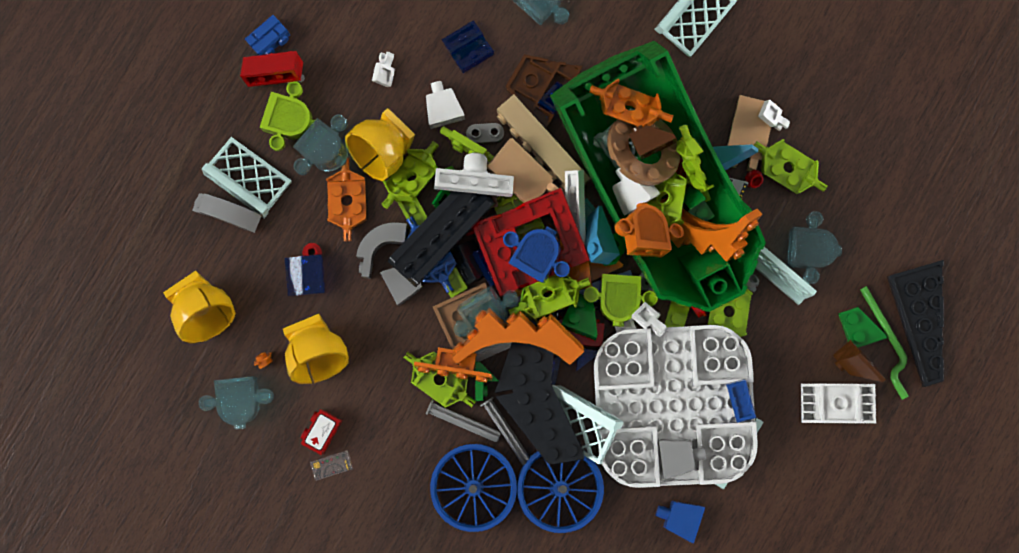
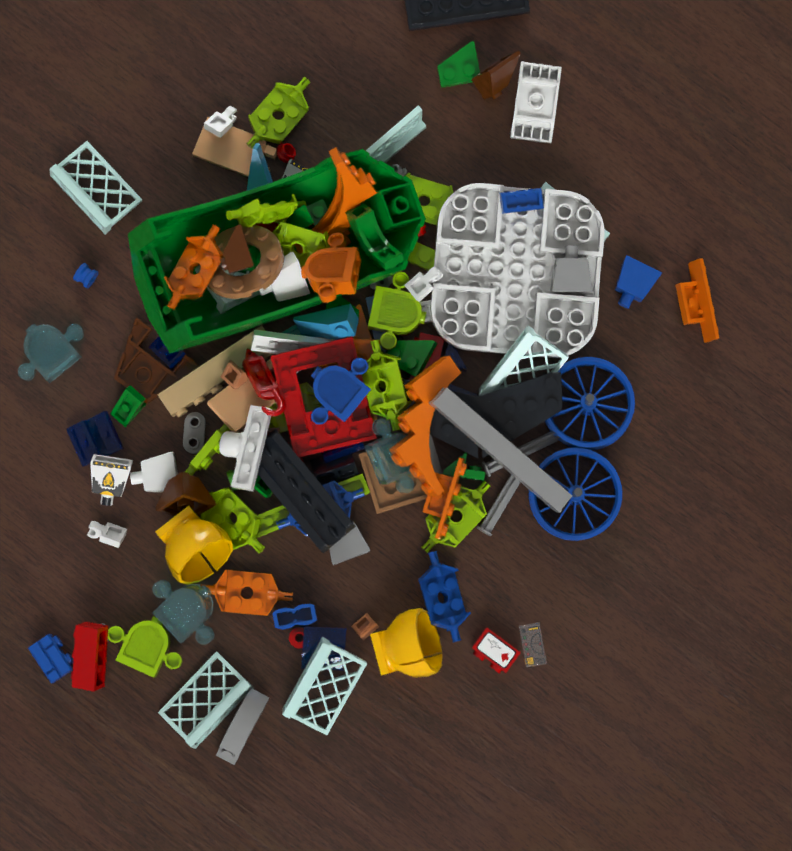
camera: 85 degrees left, 0 degrees up
(199, 309) = (346, 768): yellow plate -> none
(236, 400) = (450, 738): clear light blue piece -> none
(263, 360) = (409, 704): orange plate -> none
(270, 263) = (307, 679): none -> light aqua fence
(328, 239) = (301, 615): none -> blue brick
(329, 310) = (365, 626): none -> nougat slope
(352, 387) = (443, 580): none -> blue plate
(382, 235) = (291, 557): light grey arch -> none
(427, 130) = (184, 491): none -> reddish brown slope
(434, 63) = (109, 477): none -> torso
(500, 71) = (128, 406): none -> green slope
(502, 411) = (500, 449): none -> light grey tile
(536, 185) = (263, 381): none -> red plate
(539, 158) = (234, 375): none -> nougat slope
(613, 16) = (85, 275): none -> blue wheel
(683, 263) = (372, 239): none -> green arch
(812, 248) = (369, 103): clear light blue piece -> none
(892, 338) = (477, 35): bright green piece -> none

